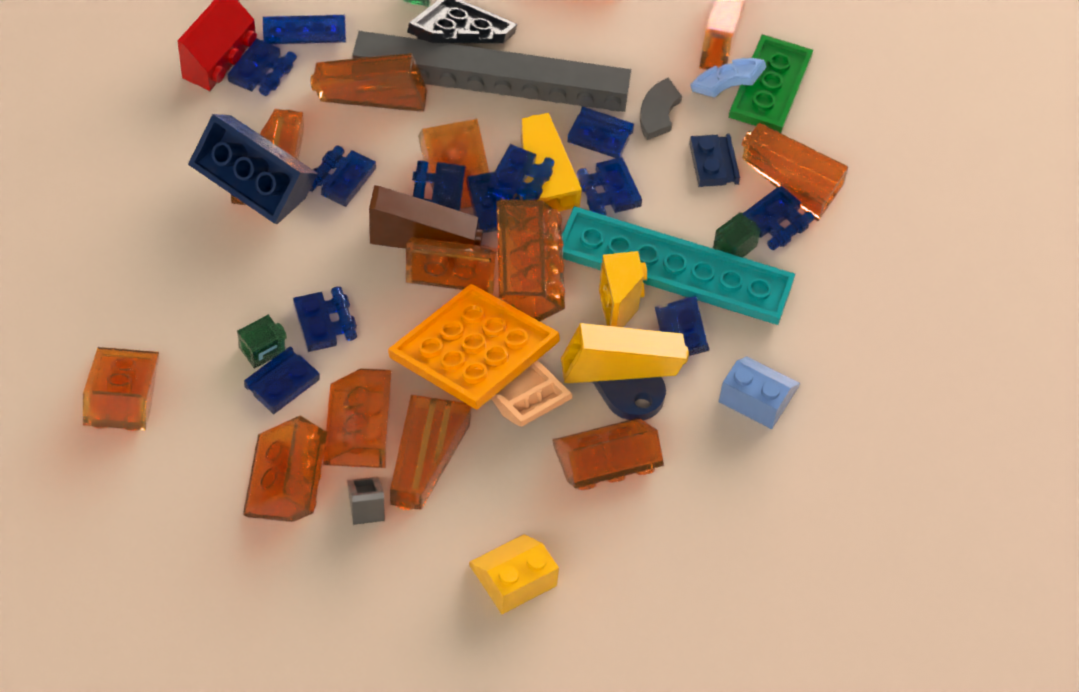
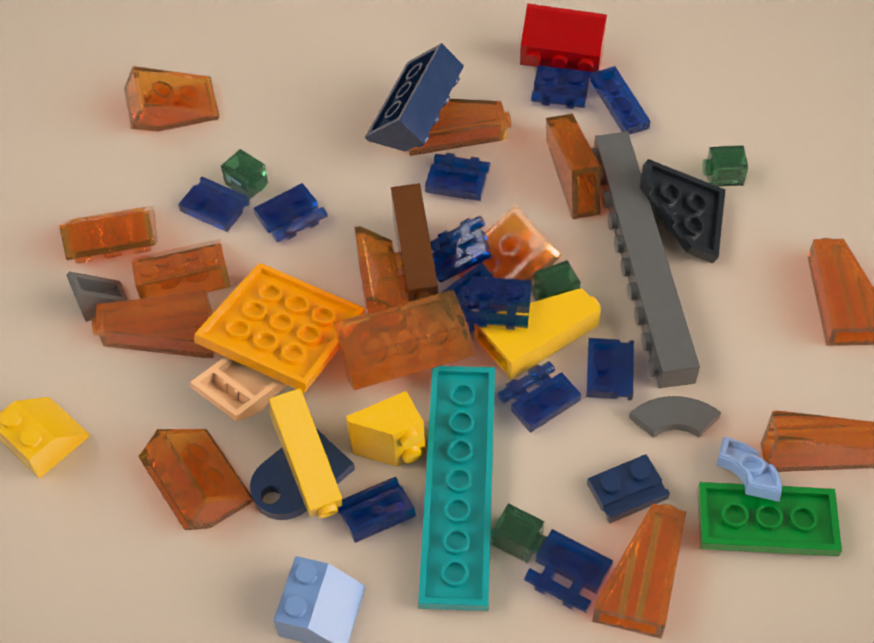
camera: 80 degrees right, 0 degrees up
(500, 134) = (554, 281): none -> clear green brick

